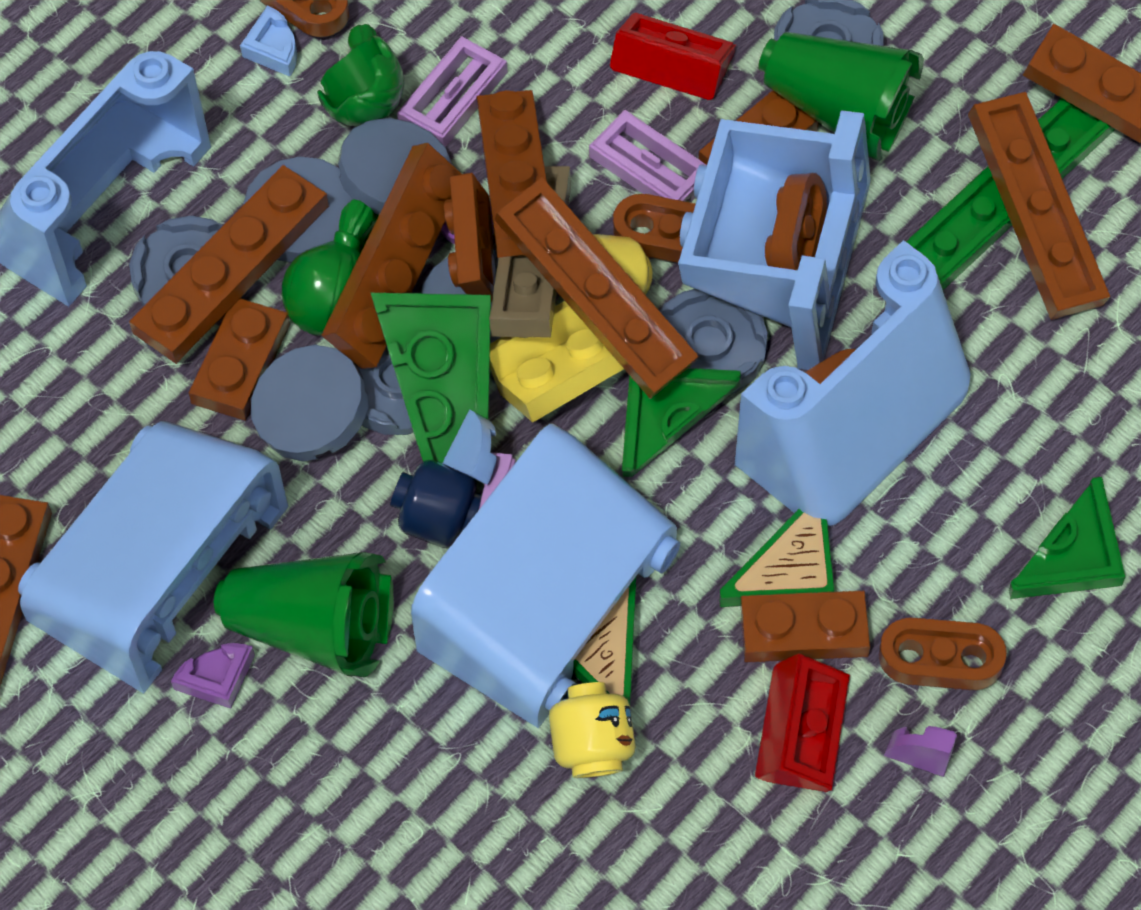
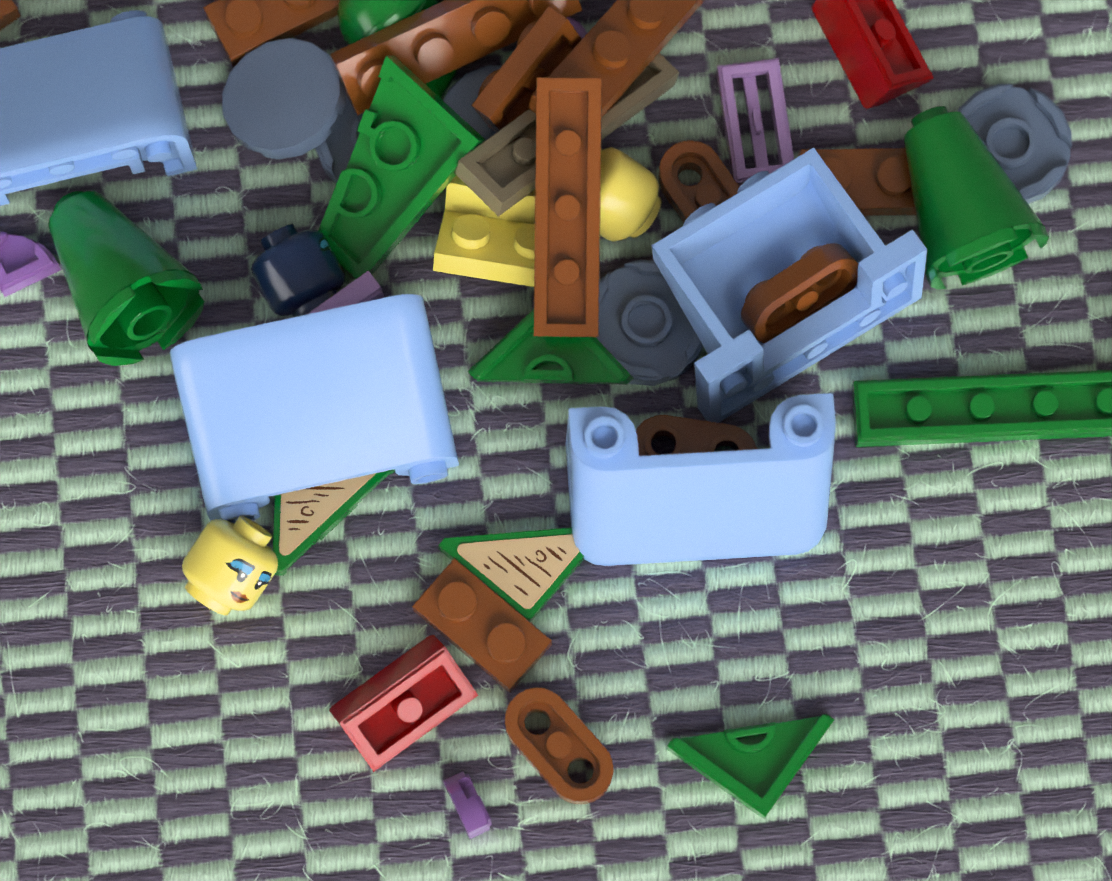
camera: 40 degrees right, 15 degrees up
(472, 448) = (353, 253): light blue tile -> none
(1038, 205) = (1020, 447): dark orange plate -> none

